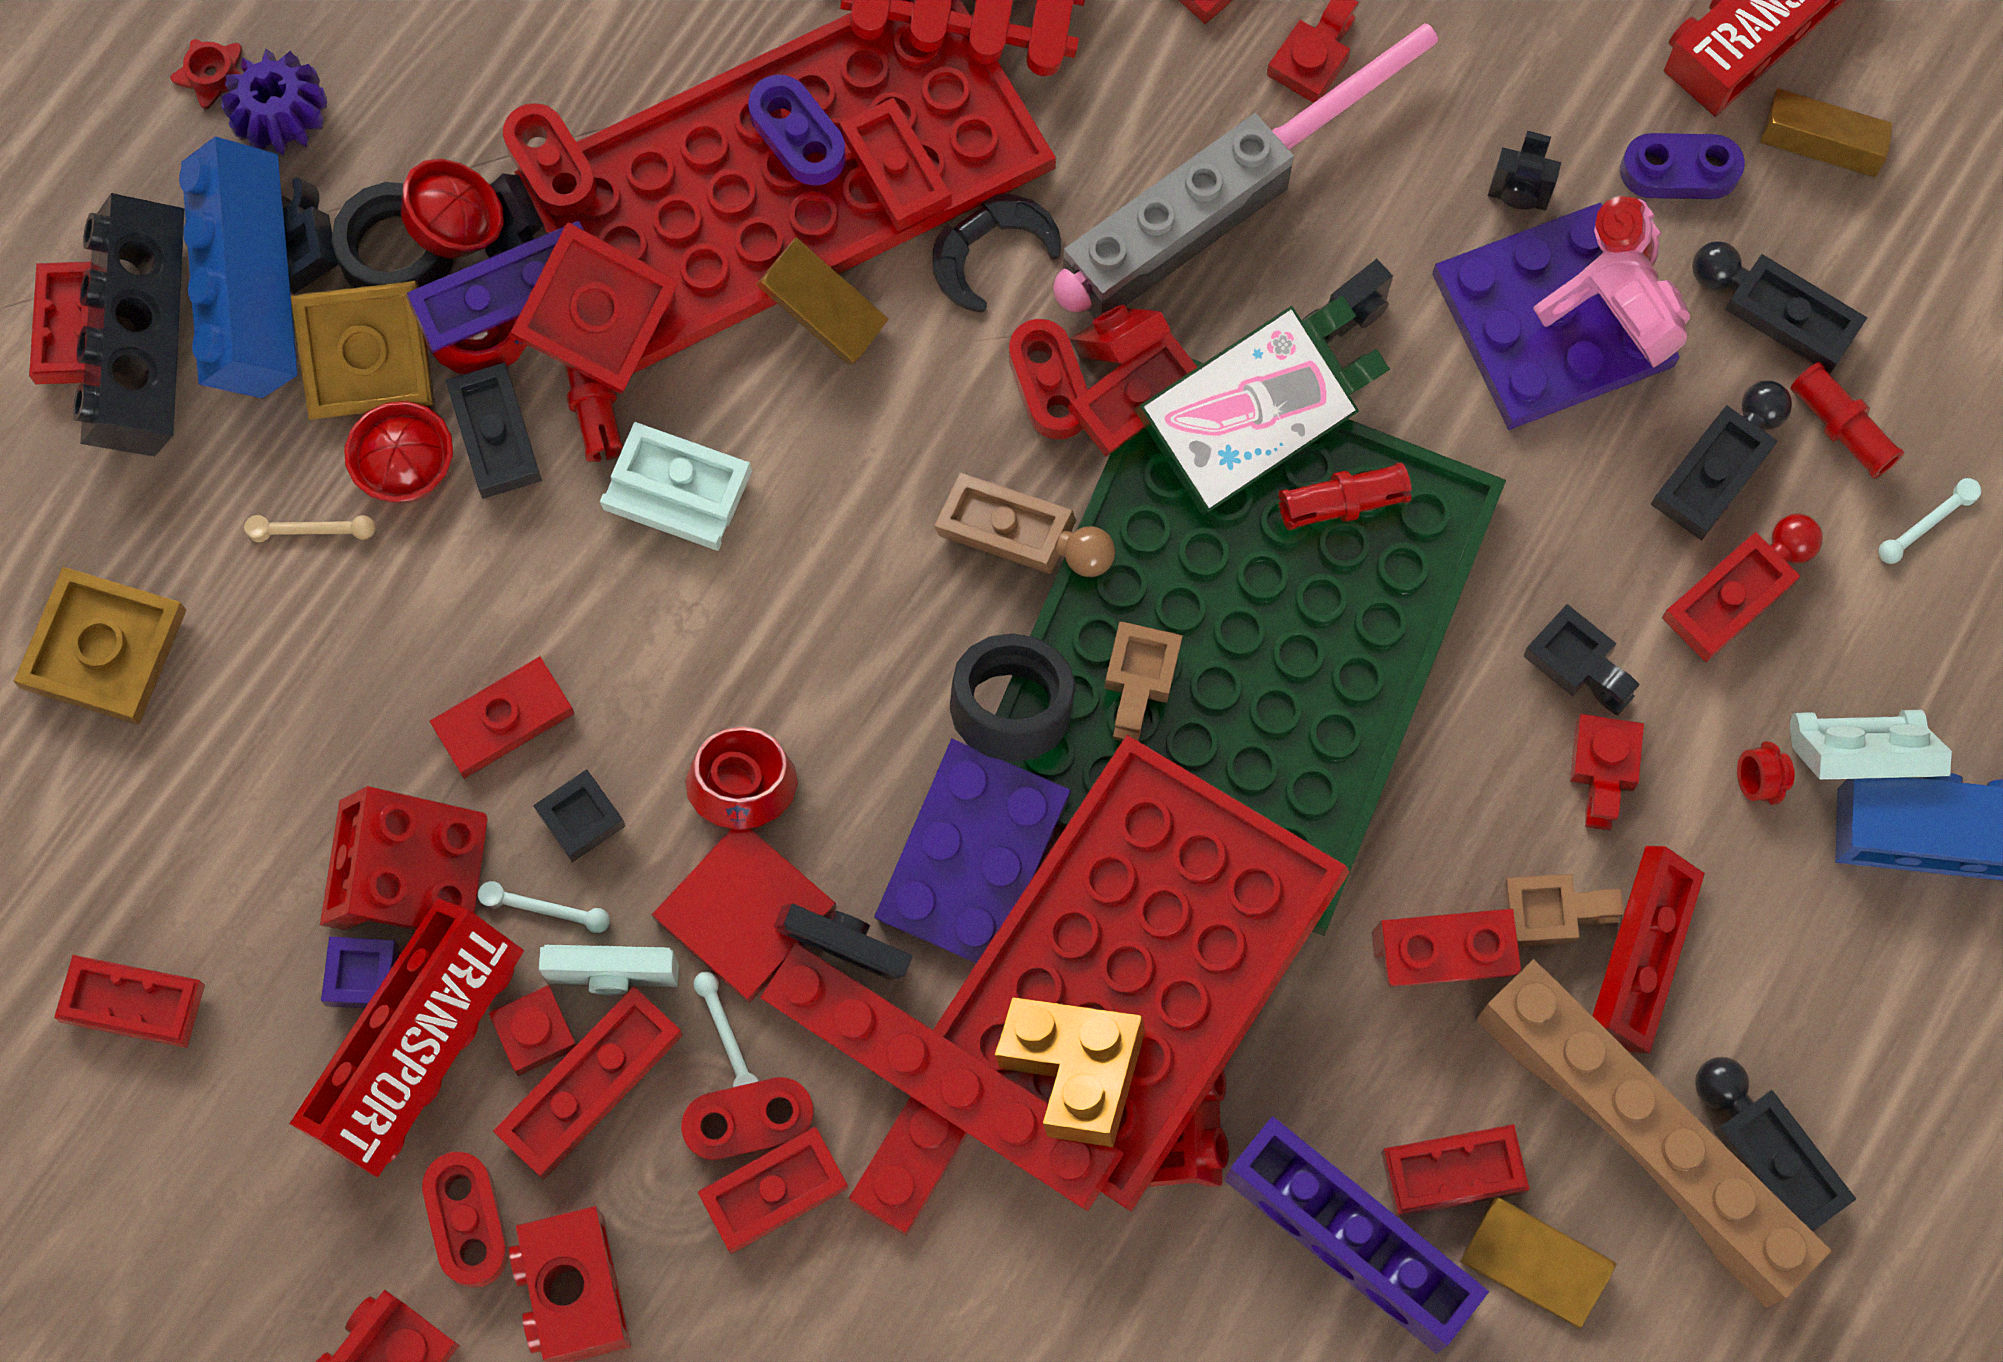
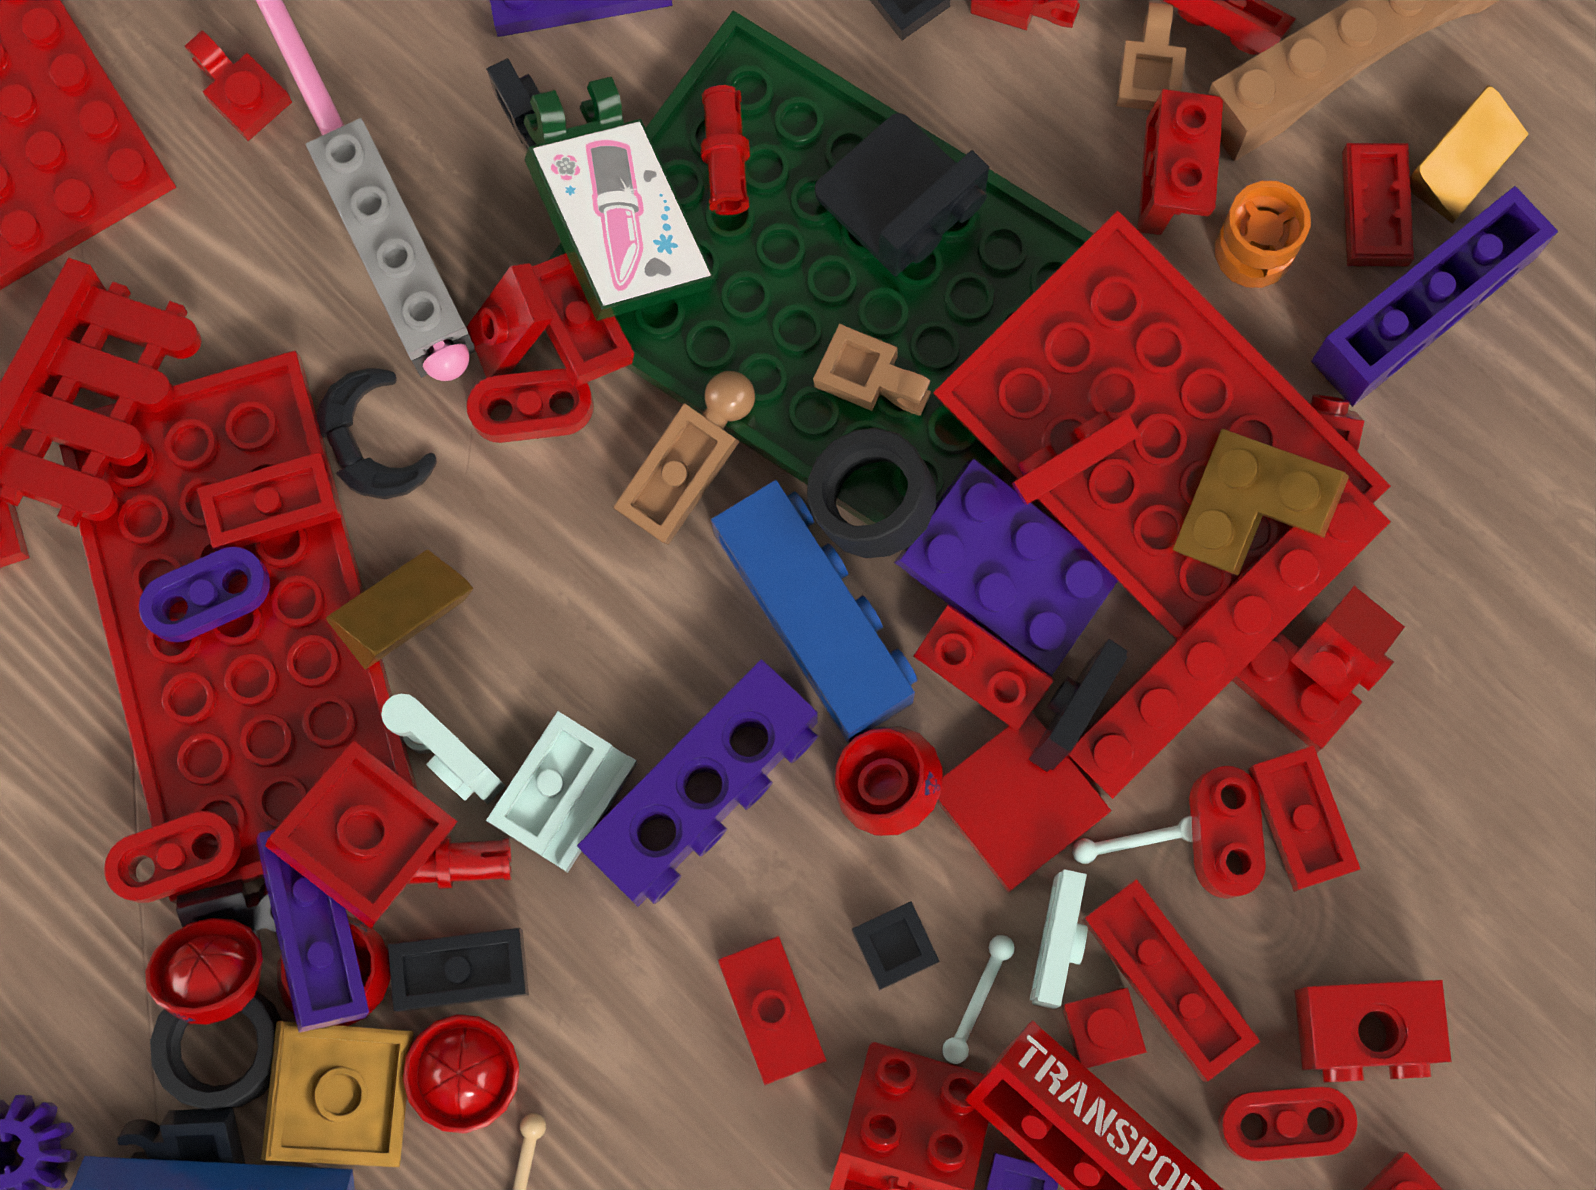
camera: 75 degrees left, 5 degrees up
(632, 543) = (755, 701): none -> dark purple brick
(690, 367) = (452, 759): none -> light aqua plate
(864, 846) = (983, 667): none -> red hinge
(890, 679) = (814, 611): none -> blue brick
(955, 1201) = (1349, 646): none -> red brick
(1102, 893) = (1096, 441): none -> red plate
(1338, 671) = (902, 192): none -> black bracket
(1385, 1046) = (1262, 234): none -> orange wheel

